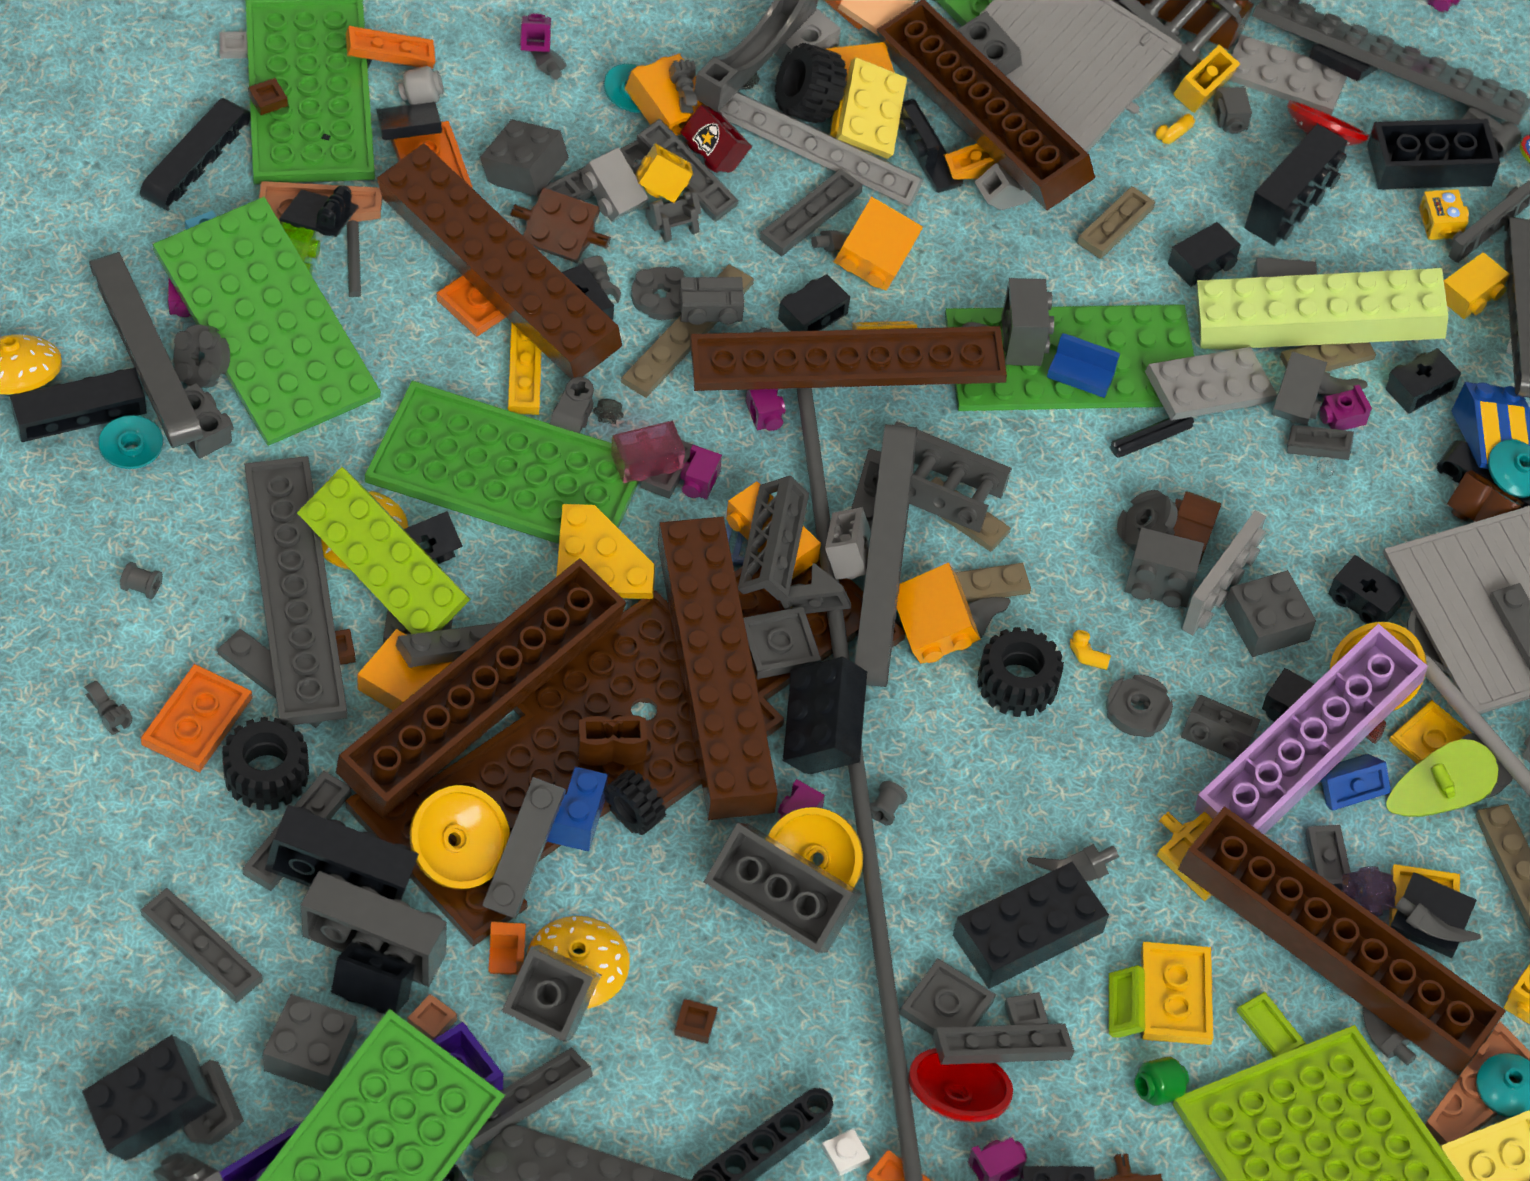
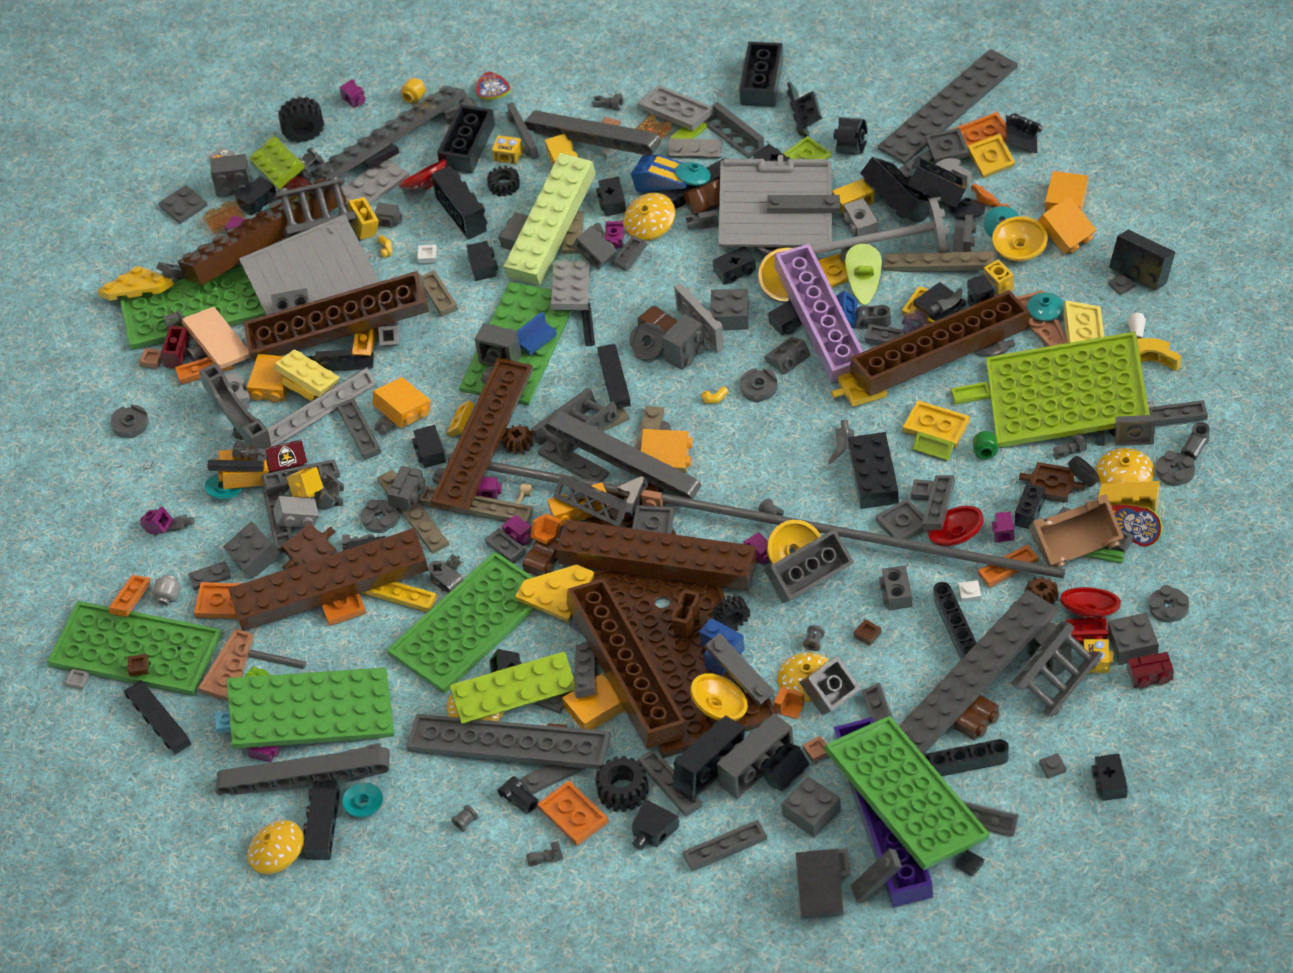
camera: 55 degrees left, 5 degrees down
(186, 355) = (319, 735): dark grey plate -> none
(204, 831) = (653, 825): none -> black torso
(206, 631) = (516, 793): none -> black piece
(321, 212) = (244, 658): black hinge -> none
(409, 121) = (191, 601): black tile -> none
(470, 128) = (212, 574): none -> dark grey plate
(648, 452) = (498, 546): clear pink brick -> none
(652, 509) = (540, 558): none -> reddish brown brick
(652, 945) = (817, 637): none -> dark grey bush
(653, 79) = (236, 465): none -> black axle
(703, 498) = (546, 528): none -> orange panel
(732, 429) = (485, 507): none -> dark tan plate
(785, 457) = (525, 489): none -> tan hand
(806, 1042) = (896, 587): none -> dark grey brick
(810, 83) = (264, 404): black tyre -> none
(822, 625) = (651, 498): none -> nougat plate
(825, 716) = (712, 514): black brick -> none
(848, 543) = (607, 470): light grey brick -> none
(875, 411) = (517, 439): none -> reddish brown gear
(1016, 692) = (721, 436): black tyre -> none
(1054, 498) = (613, 375): none -> black beam
(1185, 184) = (427, 253): none -> white plate
(1357, 824) = (874, 315): none -> dark grey piece
(1379, 218) = (503, 188): none -> black tyre
(1408, 444) = (654, 221): none -> yellow dish
(1437, 515) = (704, 220): none -> dark grey plate
(1481, 964) = (979, 290): none -> black brick
(1494, 59) = (413, 90): none -> yellow head

